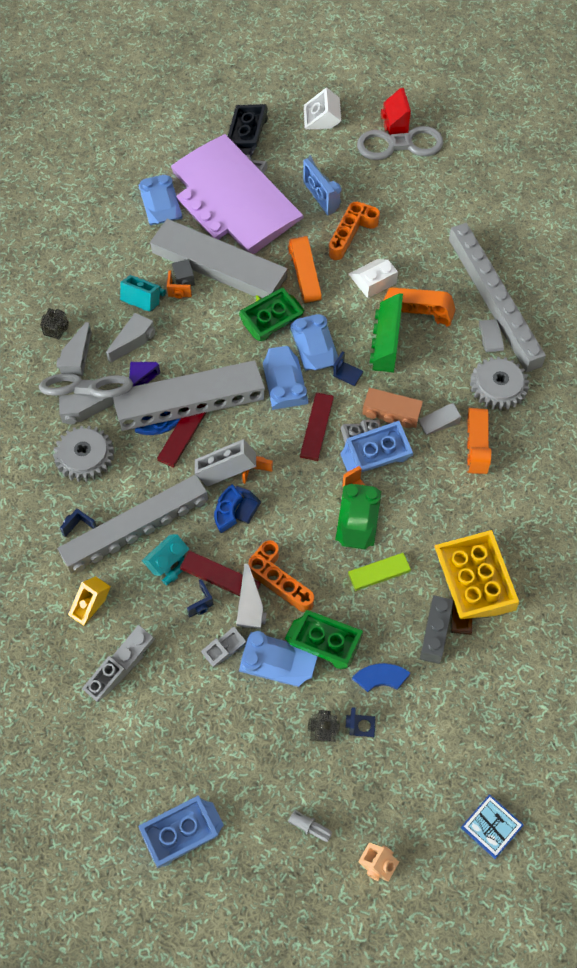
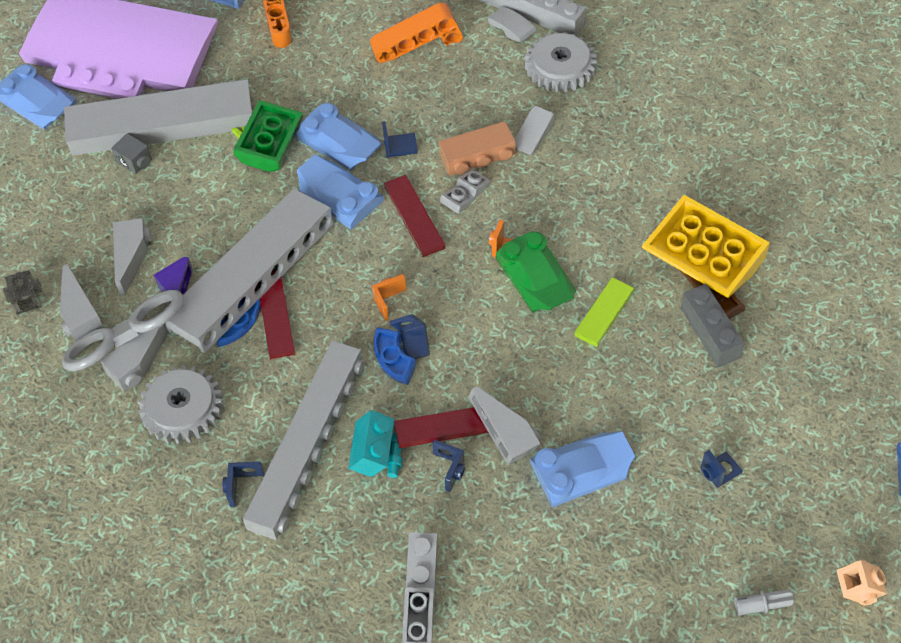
camera: 35 degrees left, 5 degrees down
(89, 599) = (325, 550): yellow slope -> none
(140, 293) = (100, 200): teal brick -> none
(176, 290) = (139, 174): orange bracket -> none
(224, 647) = (515, 493): light grey slope -> none
(225, 462) = (356, 306): light grey brick -> none
(284, 580) = (517, 383): orange beam -> none
(305, 269) = (251, 56): orange beam -> none
(317, 730) = (690, 495): clear smoke brick -> none
(325, 638) = (612, 409): green slope -> none
(375, 277) = (344, 36): white slope -> none
(376, 448) = (497, 195): medium blue slope -> none
(380, 675) = (697, 407): blue tile -> none
(387, 334) = (410, 80): green slope -> none
(477, 443) = (603, 139): orange beam -> none

